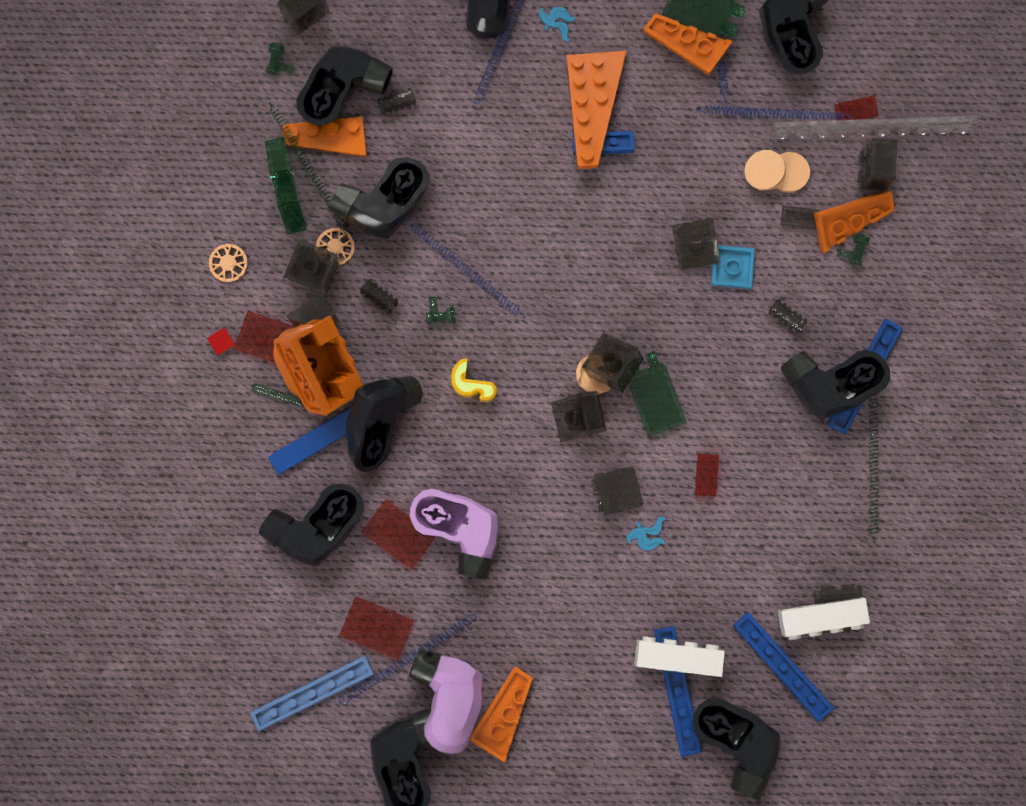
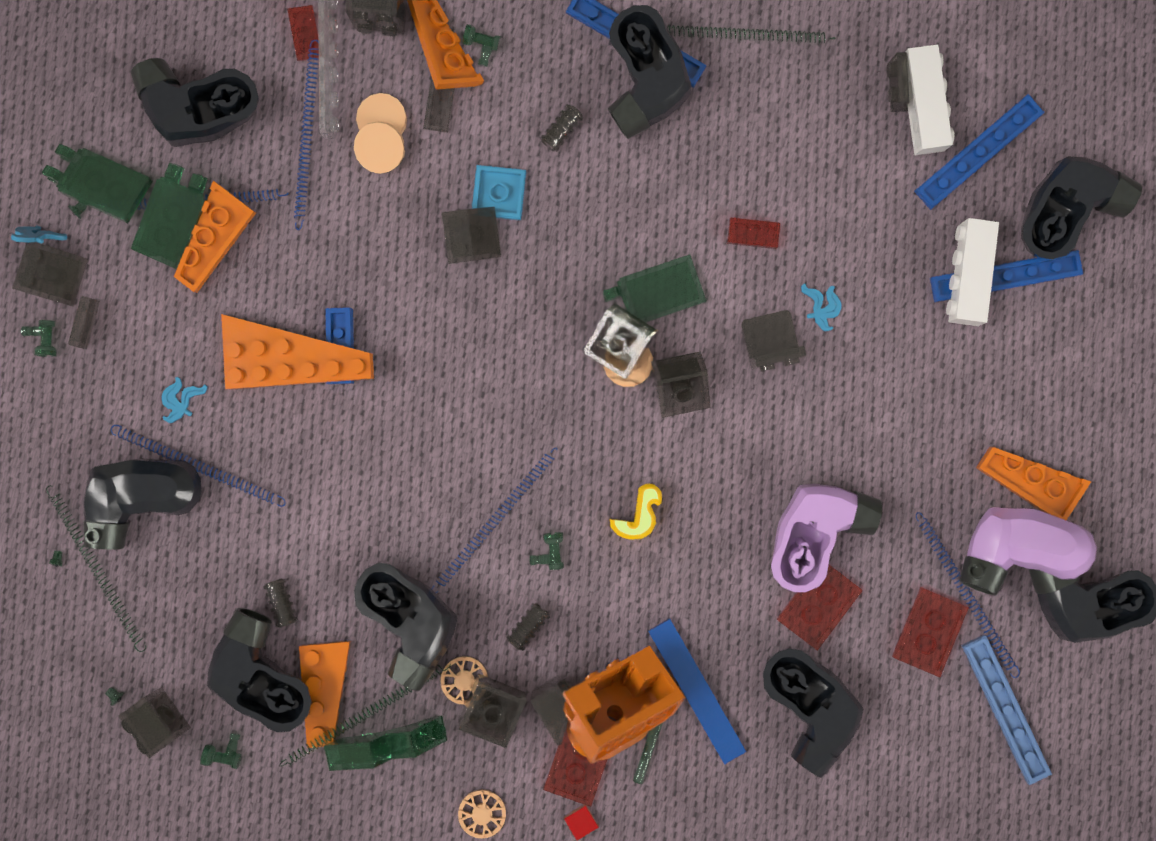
camera: 90 degrees left, 5 degrees up
(373, 418) = (683, 636): black piece -> none

